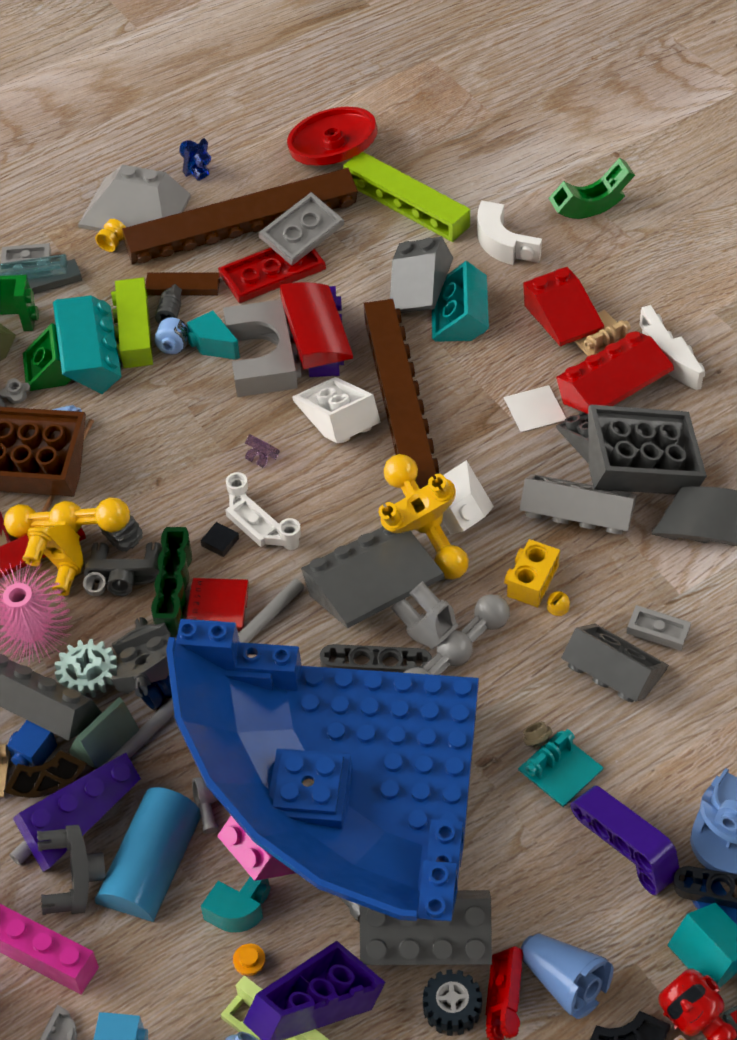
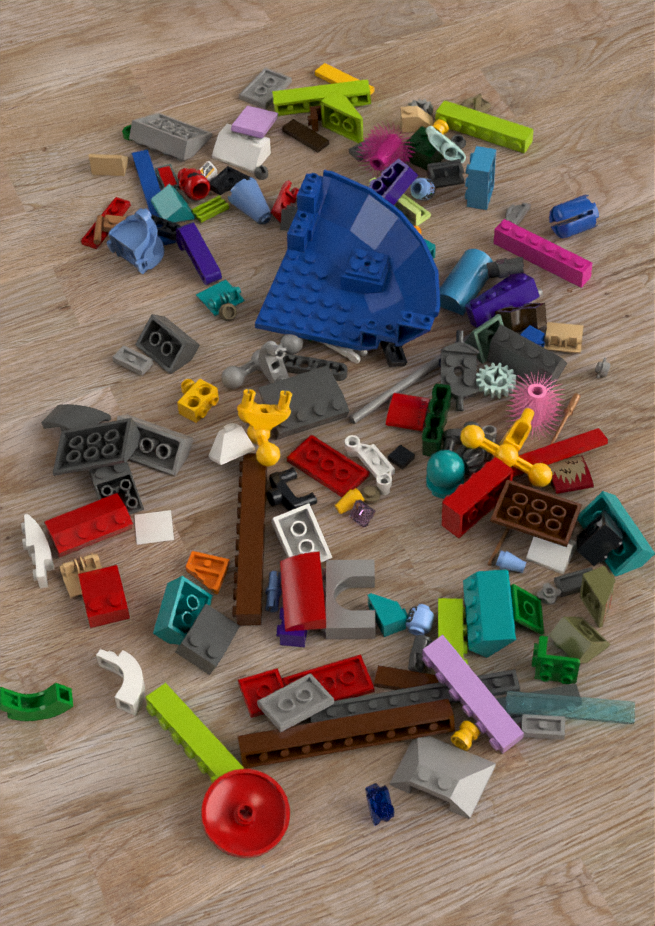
camera: 170 degrees left, 0 degrees up
(105, 255) = (472, 694): none -> lavender brick
(109, 466) = (475, 497): none -> red brick
(153, 503) = (444, 473): none -> teal tile
(161, 264) = (496, 683): none -> dark grey plate
(257, 480) = (370, 494): none -> dark tan plate
(280, 464) = (347, 501): none -> yellow cone
(321, 511) = (327, 466): none -> red tile
(344, 247) = (257, 687): none -> red plate
(358, 346) = (273, 591): none -> medium blue pin
(371, 456) = (283, 495): none -> black connector
(445, 359) = (208, 569): none -> orange wing
(660, 948) = (210, 209): none -> lime tile

